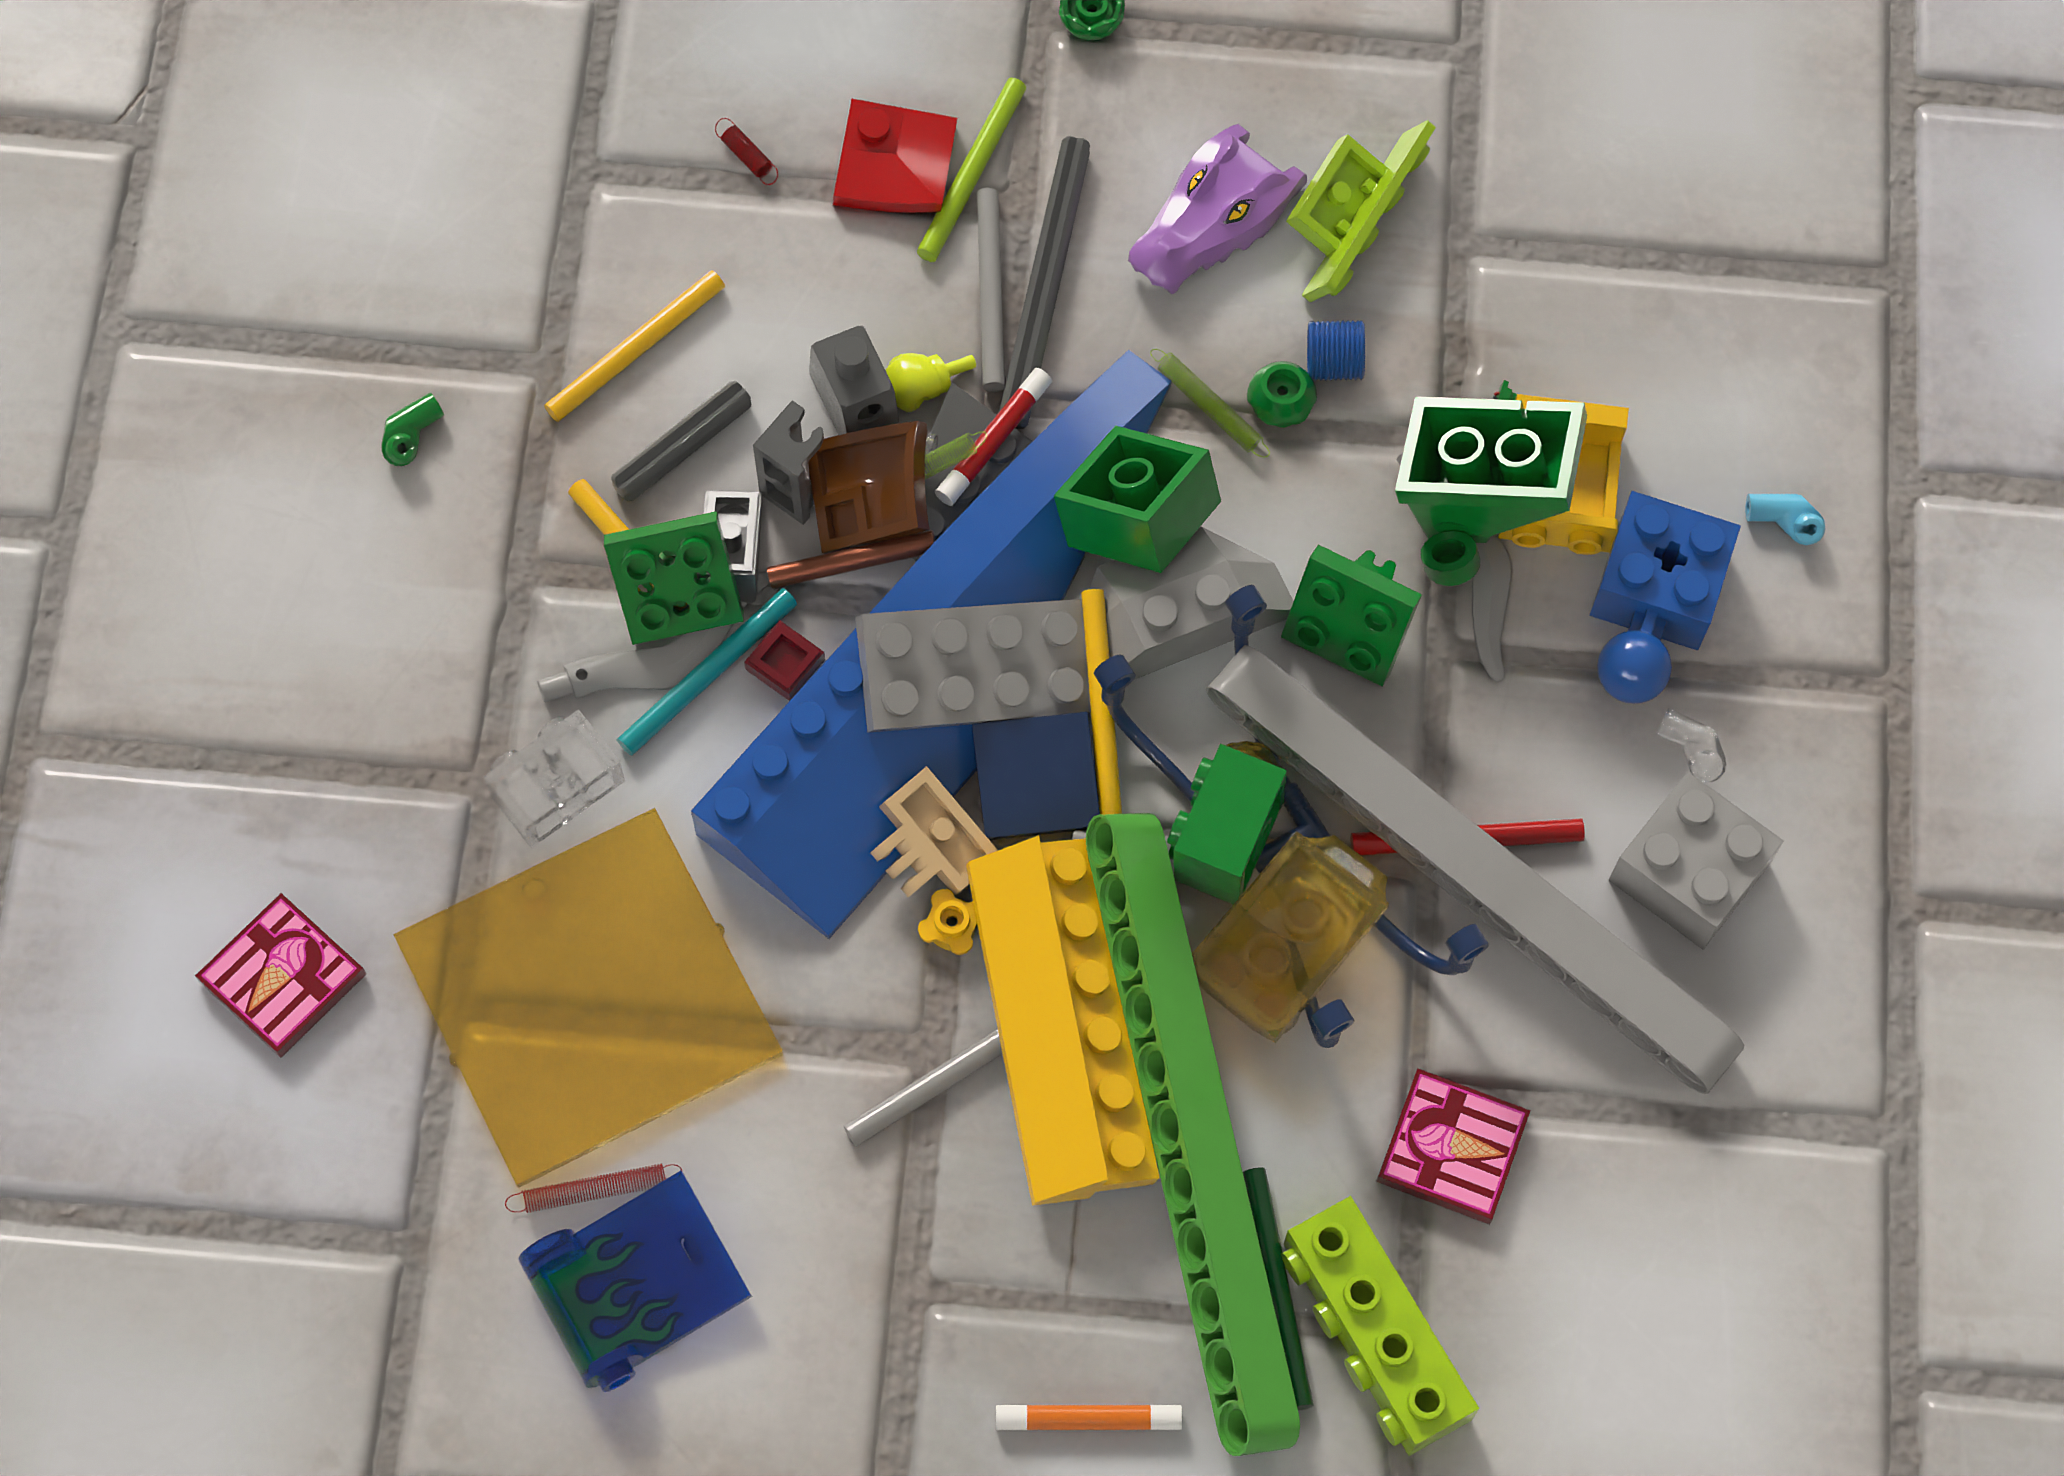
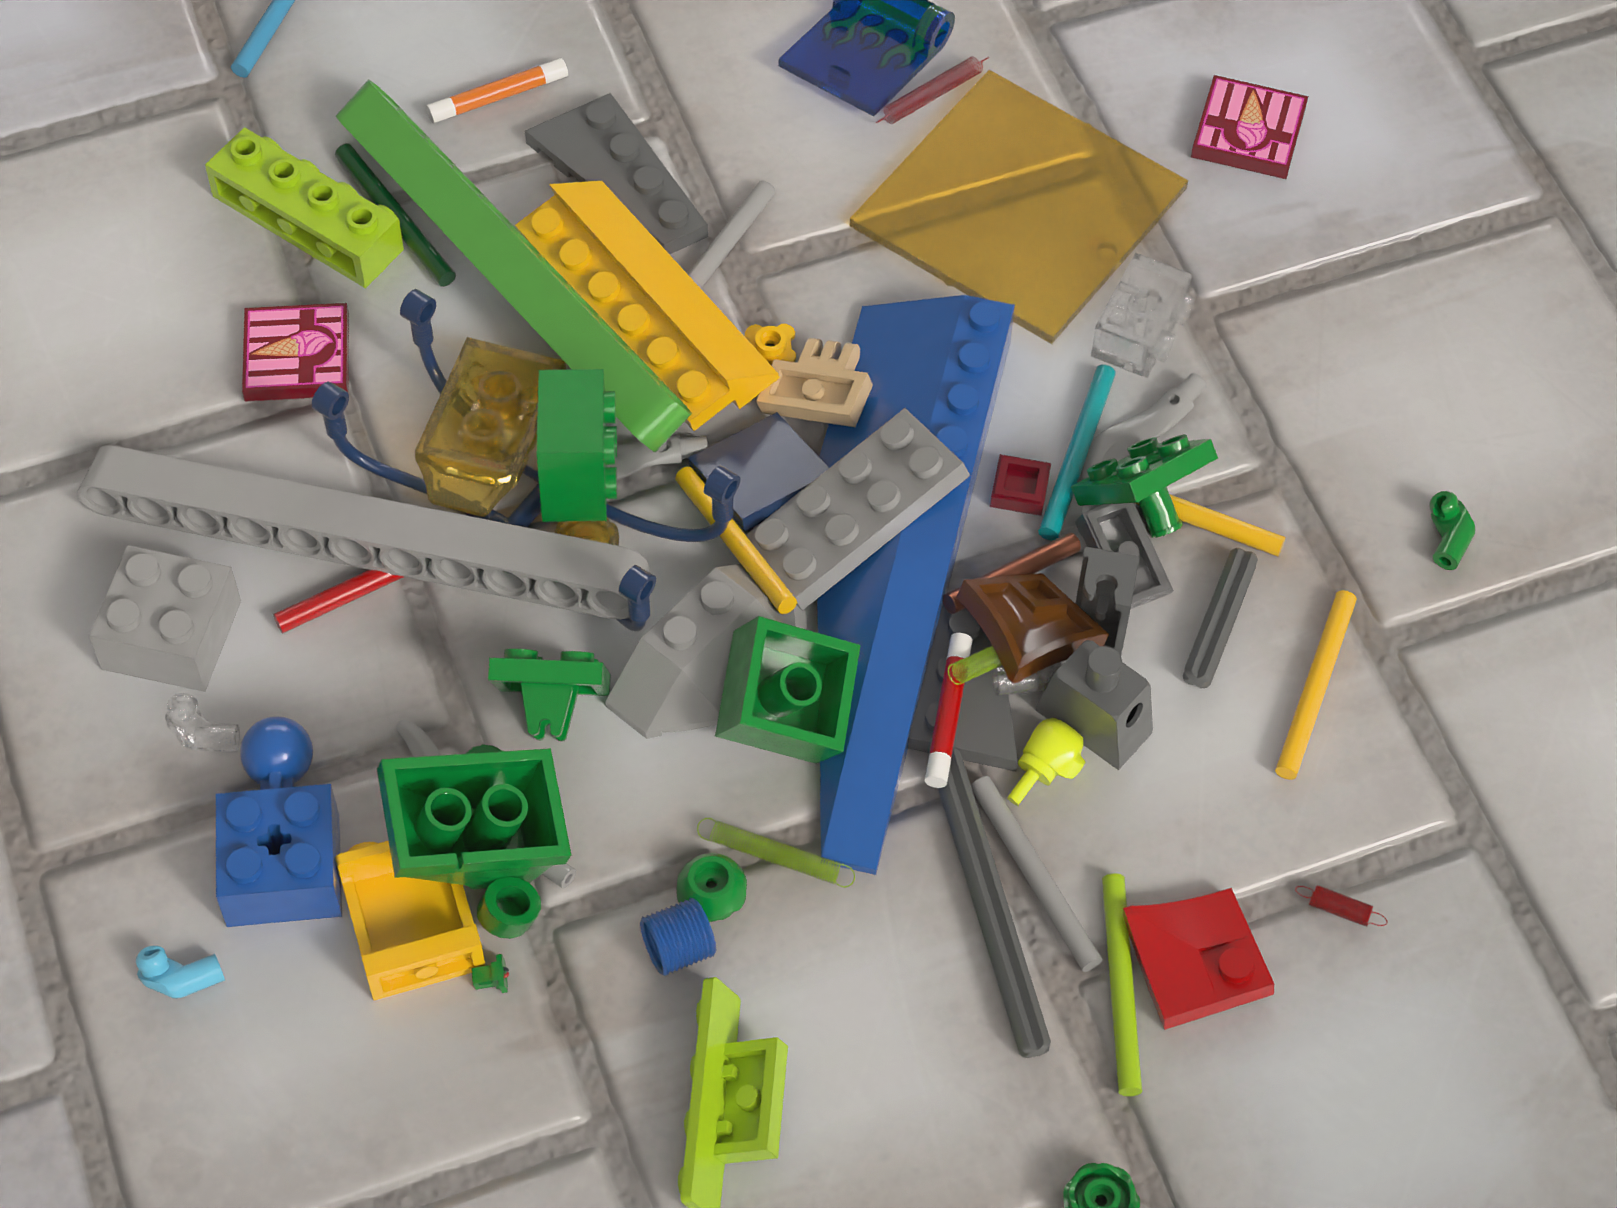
camera: 155 degrees right, 10 degrees down
(1003, 1245) = (605, 146): none -> dark grey wing
(1217, 205) = (867, 1035): medium lavender animal -> none

